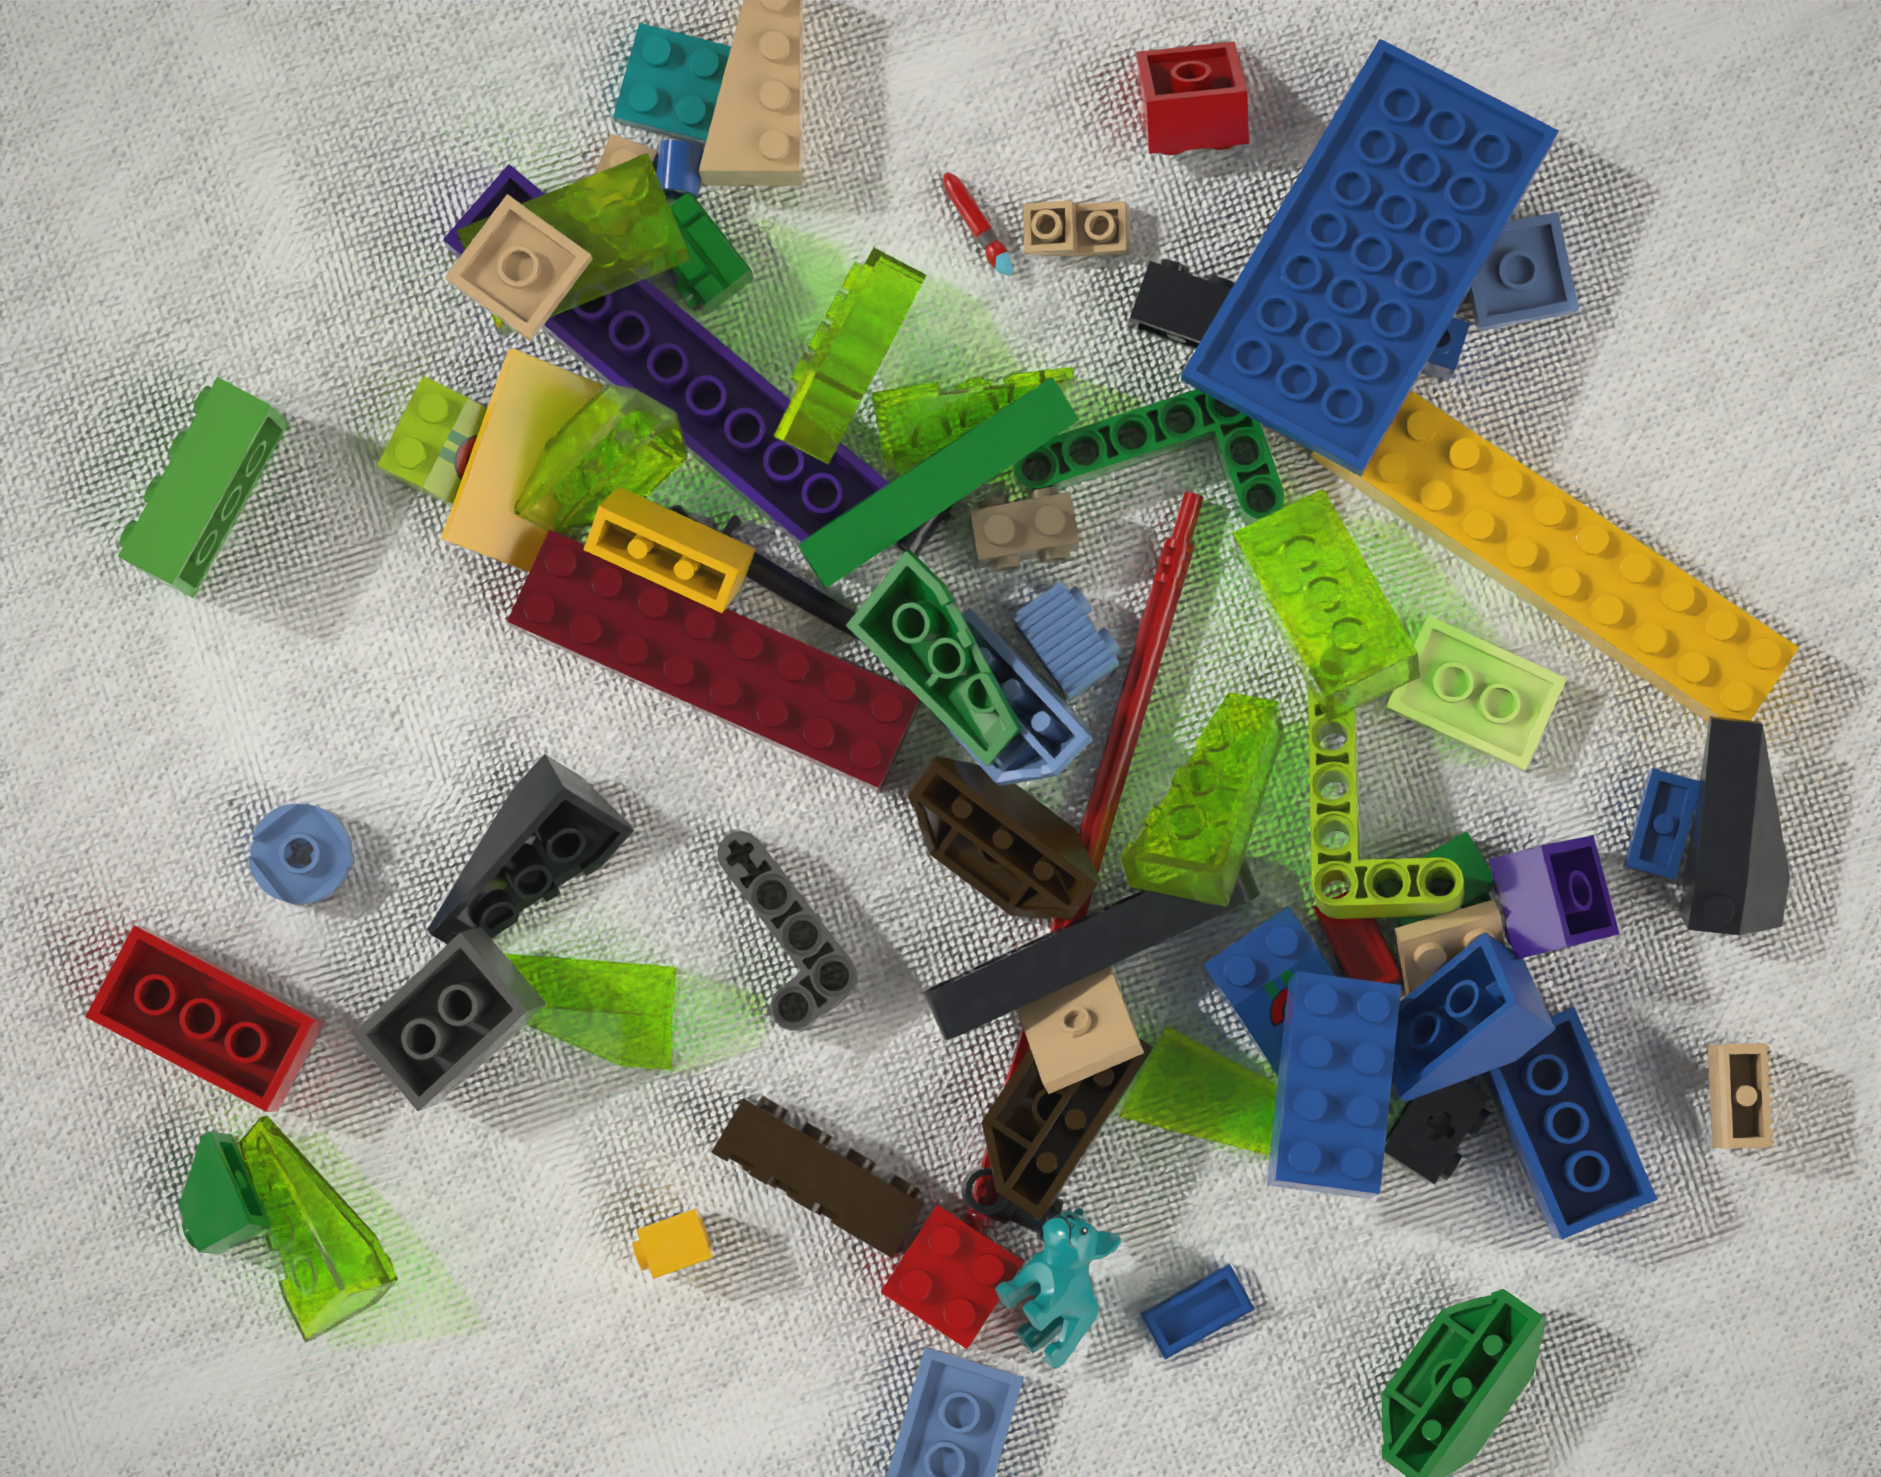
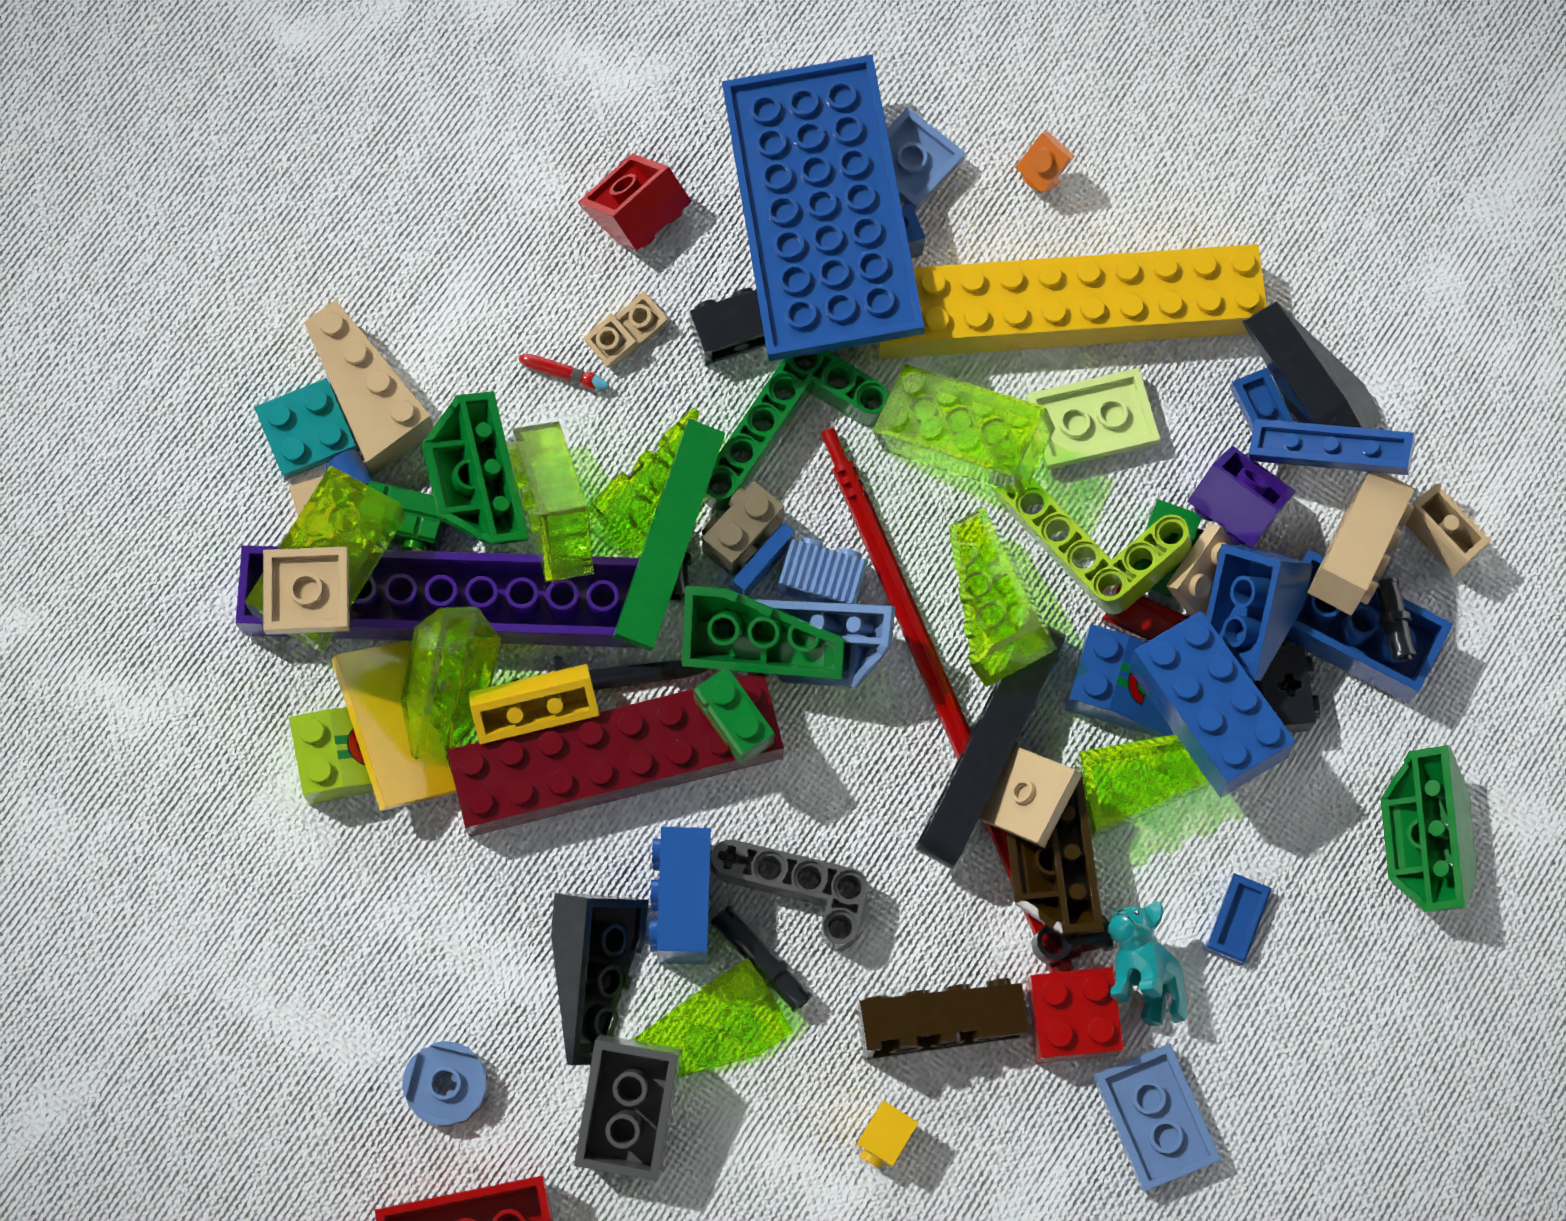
camera: 50 degrees left, 10 degrees down
(203, 486) = (197, 896): bright green brick -> none
(662, 855) = (681, 895): none -> blue brick
(696, 976) = (770, 968): none -> black pin
(796, 263) = (474, 471): none -> green wedge
(847, 720) = (734, 716): none -> green brick
(1002, 841) = (885, 725): dark brown wedge -> none
(1017, 579) = (763, 560): none -> blue tile
(1596, 1149) = (1395, 620): none -> black pin
(1628, 1044) = (1361, 540): none -> tan wedge
(1649, 385) = (1044, 163): none -> orange bracket
(1686, 922) = (1332, 446): none -> blue plate

